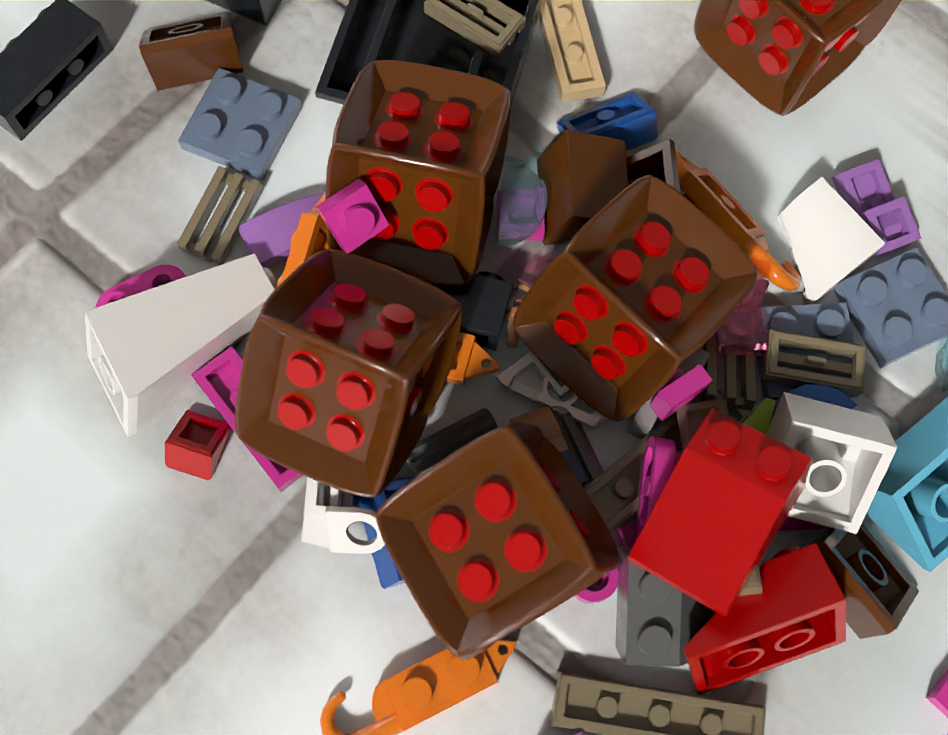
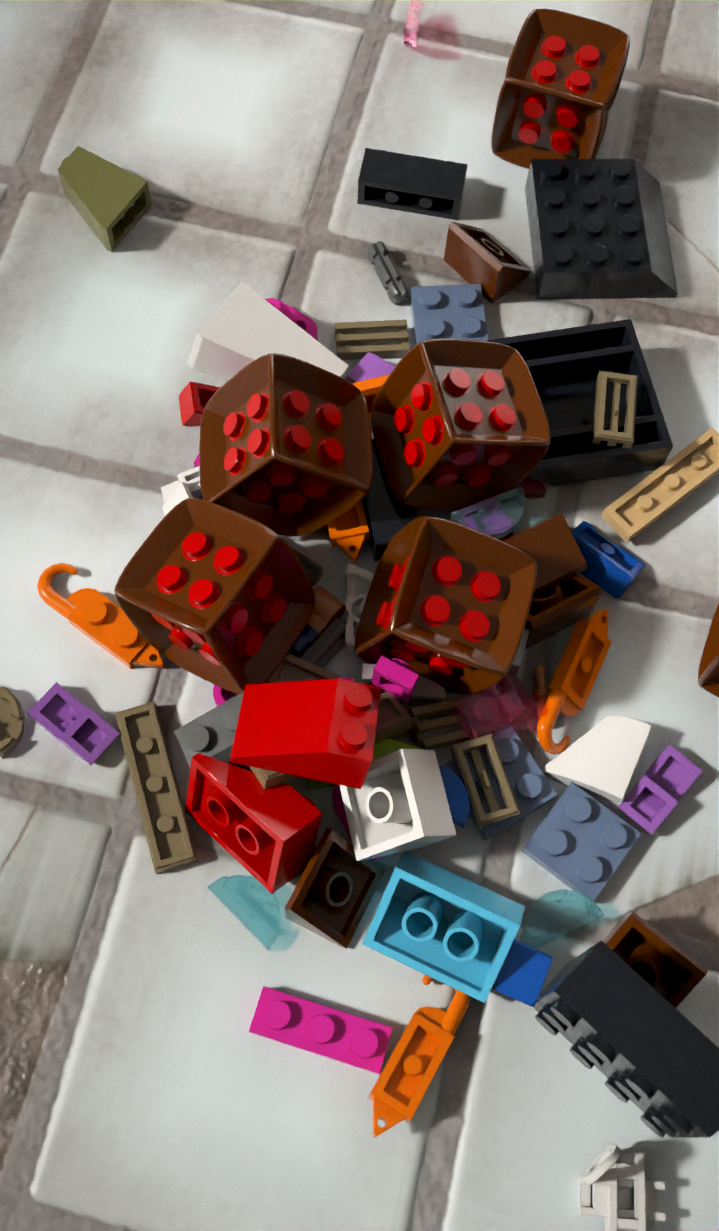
camera: 65 degrees right, 5 degrees down
(141, 154) = (388, 272): none -> dark grey axle
(352, 215) = (389, 390): dark pink plate -> none
(836, 672) = (250, 905): none -> clear light blue tile

